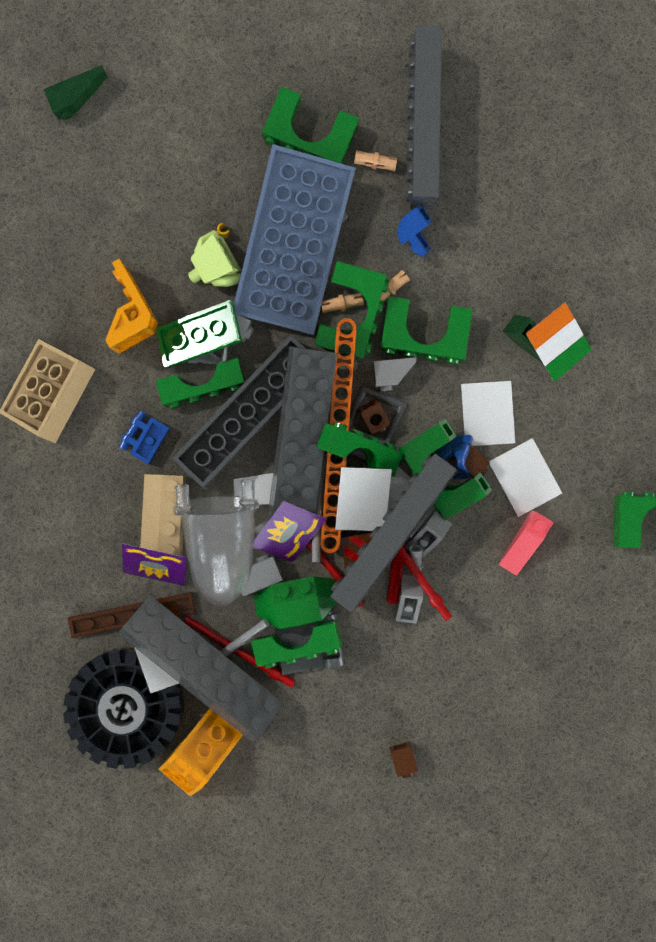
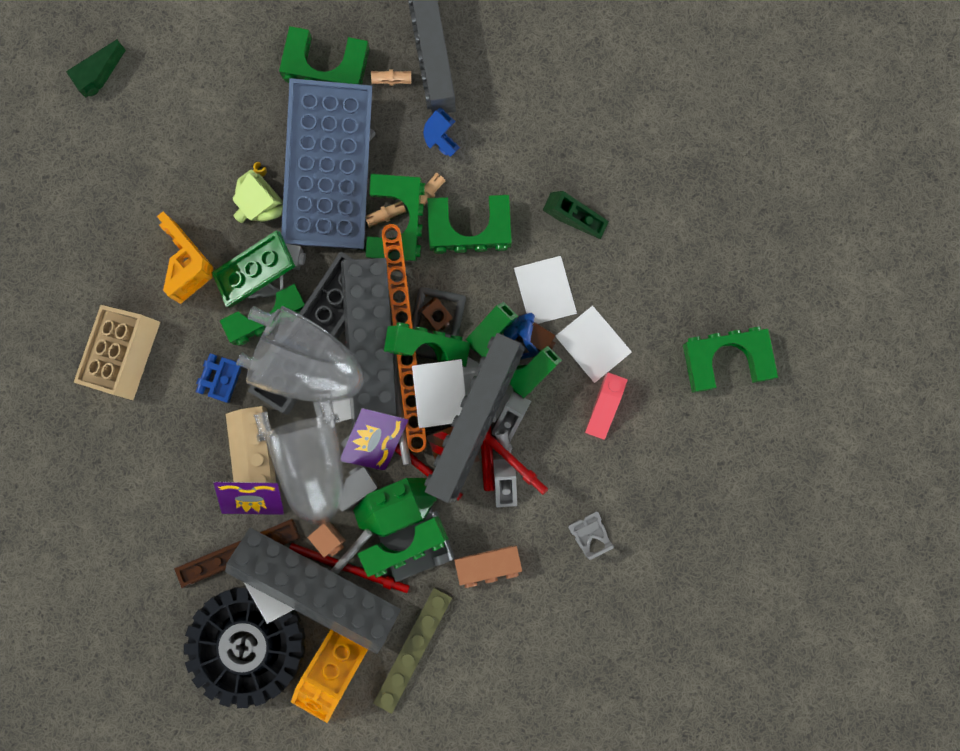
camera: 10 degrees left, 5 degrees down
(223, 622) = (327, 540): none -> nougat brick
(233, 442) = (300, 359): none -> clear windscreen
(286, 743) = (412, 650): none -> olive plate
(377, 677) = (488, 566): none -> nougat brick
(391, 372) = (445, 269): light grey slope -> none
(403, 760) = (531, 642): reddish brown brick -> none
(482, 661) = (587, 529): none -> light grey piece
(559, 341) = (597, 209): sticker -> none

